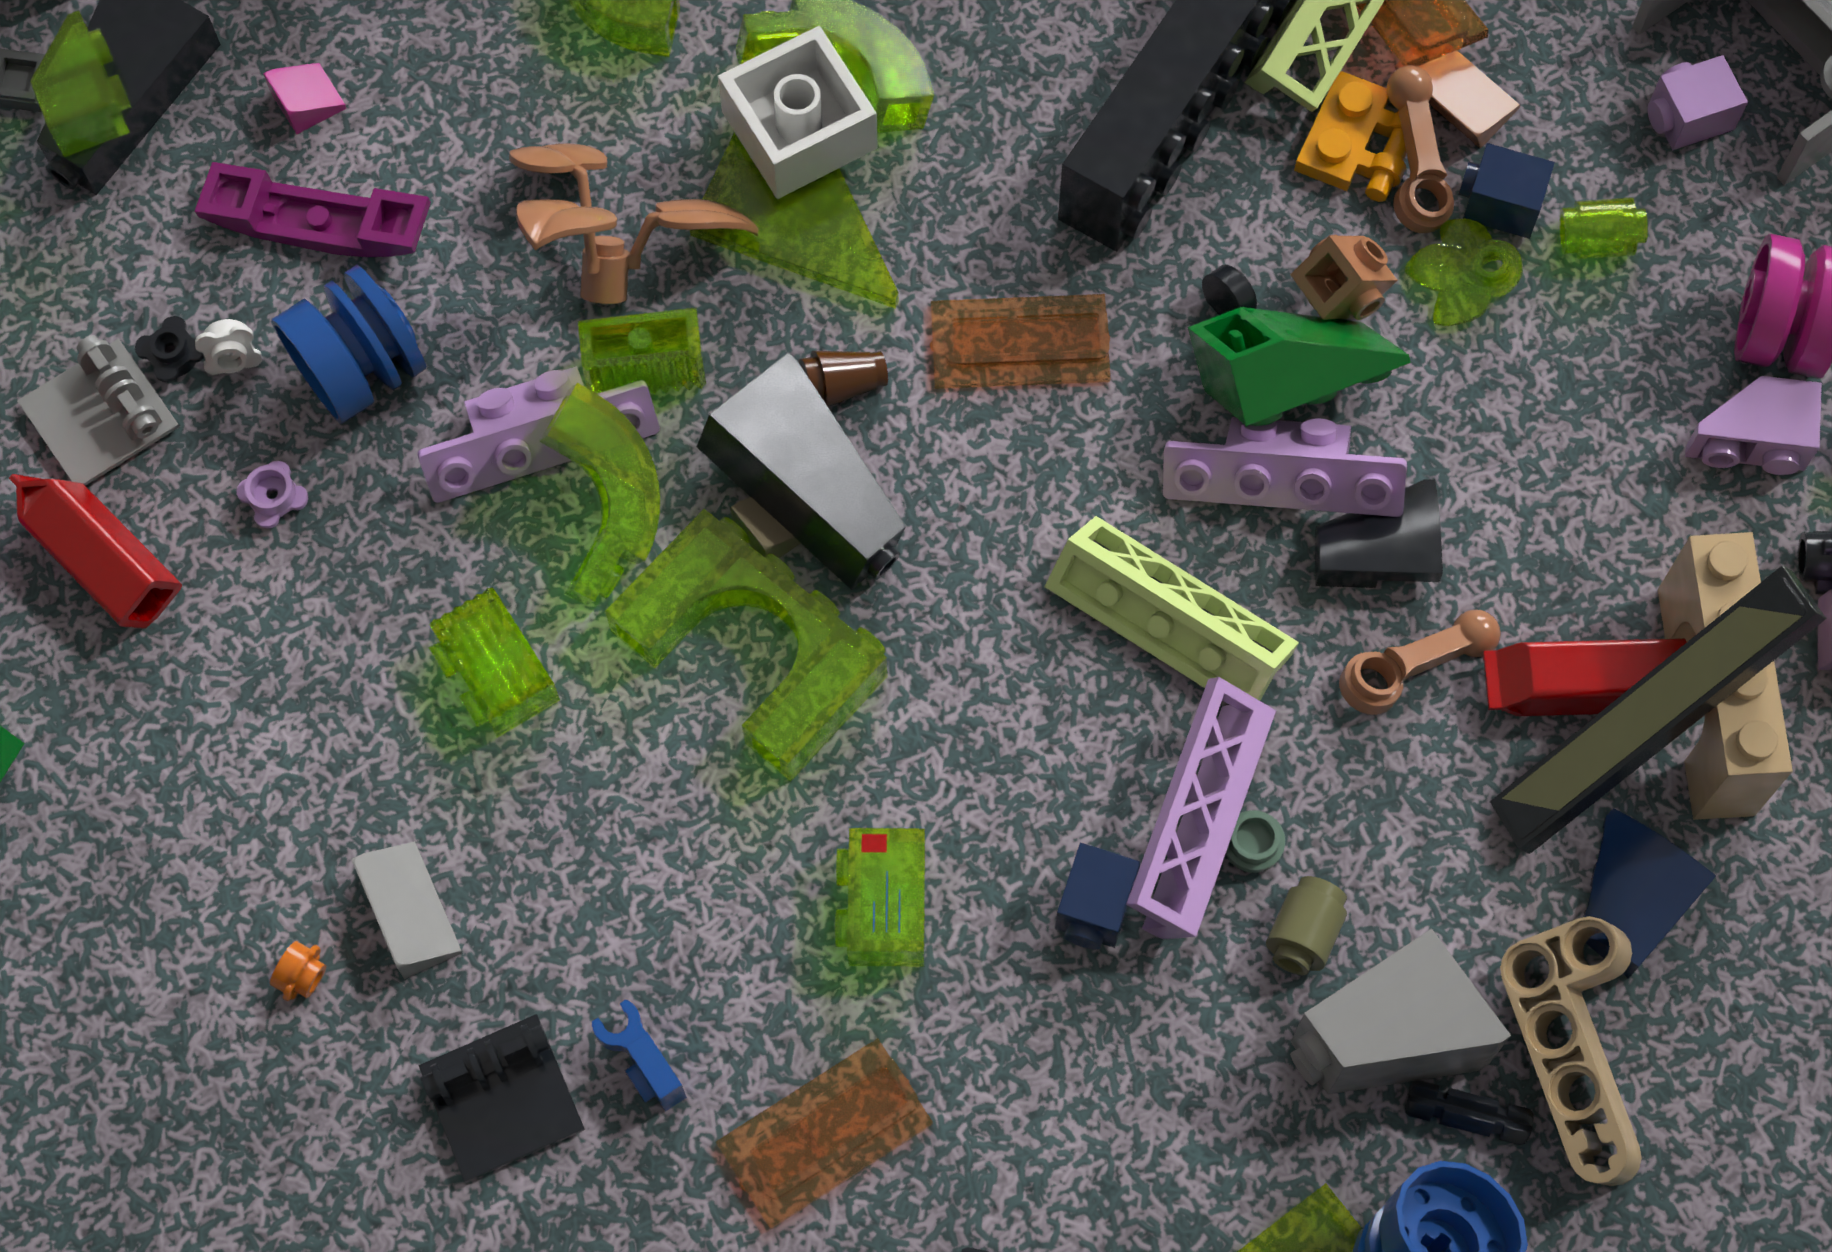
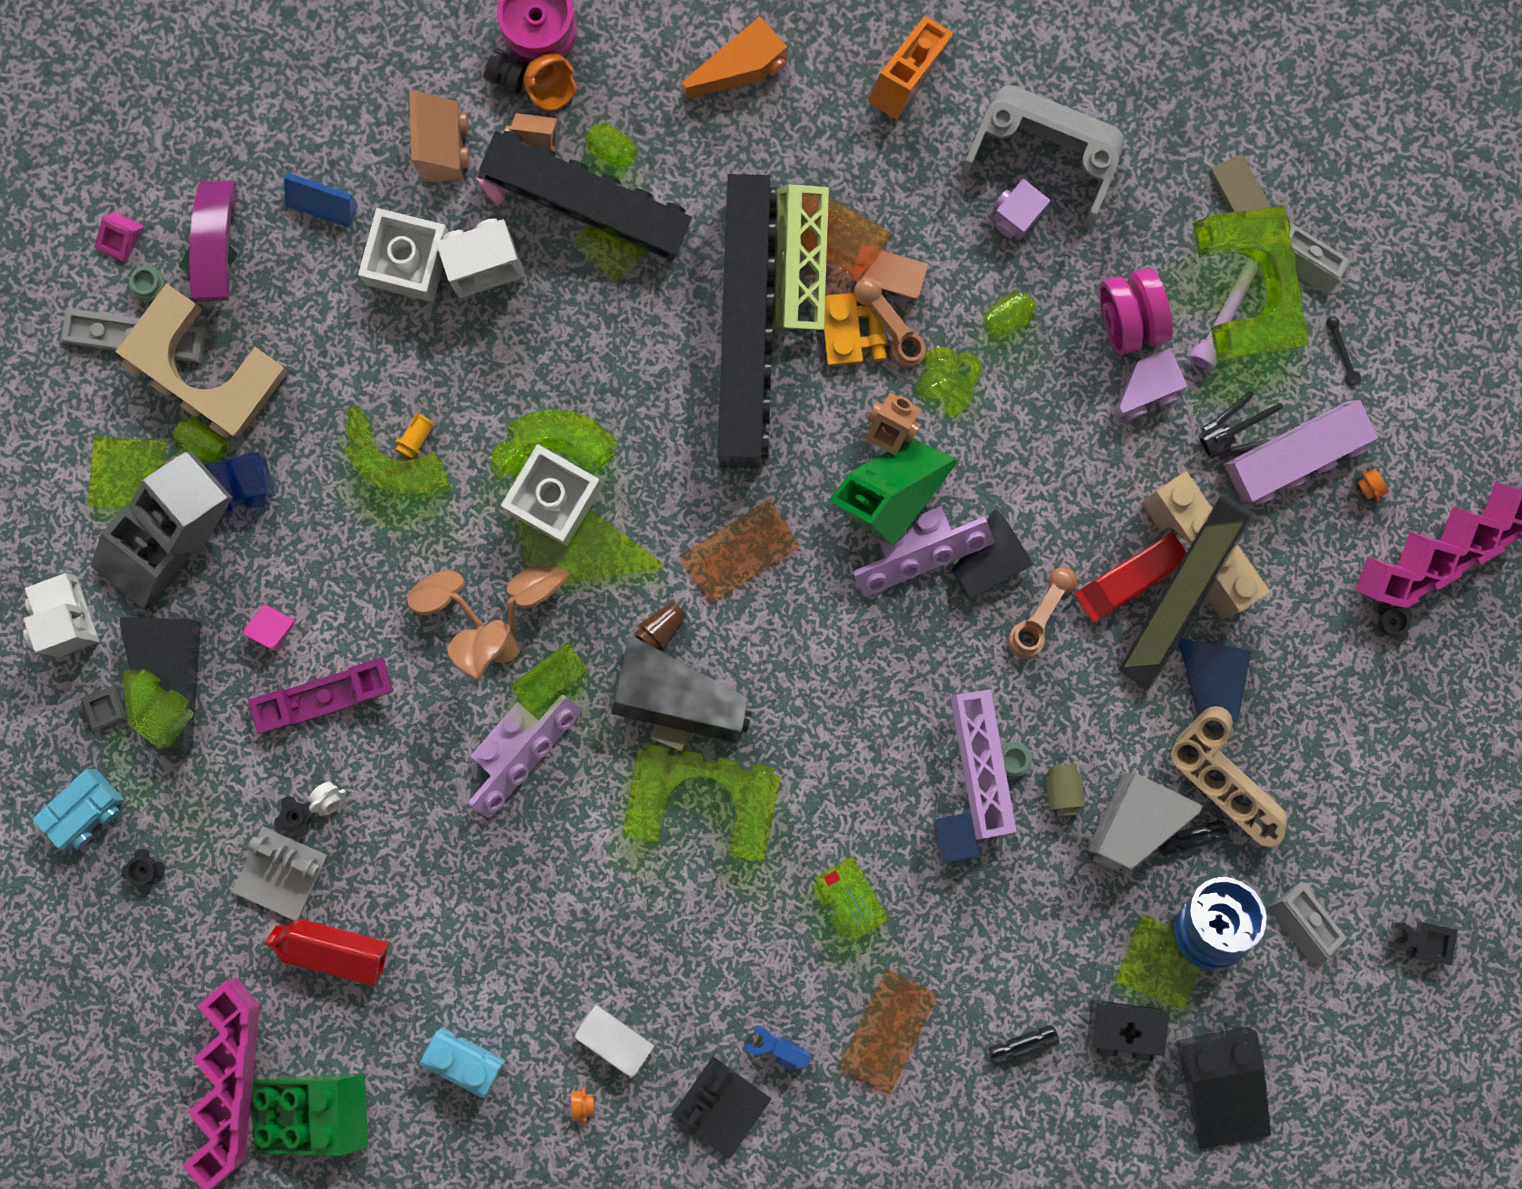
camera: 30 degrees left, 15 degrees up
(170, 805) = (462, 1062): none -> medium azure brick
(262, 481) = (392, 868): lavender plate -> none
(349, 343) = (394, 766): blue wheel -> none
(493, 662) = (578, 891): clear neon green brick -> none
(626, 480) = (602, 777): clear neon green arch -> none
(1167, 616) = (905, 666): yellowish green fence -> none
(1228, 290) = (836, 463): black tile -> none
(1506, 189) = (949, 322): dark blue brick -> none

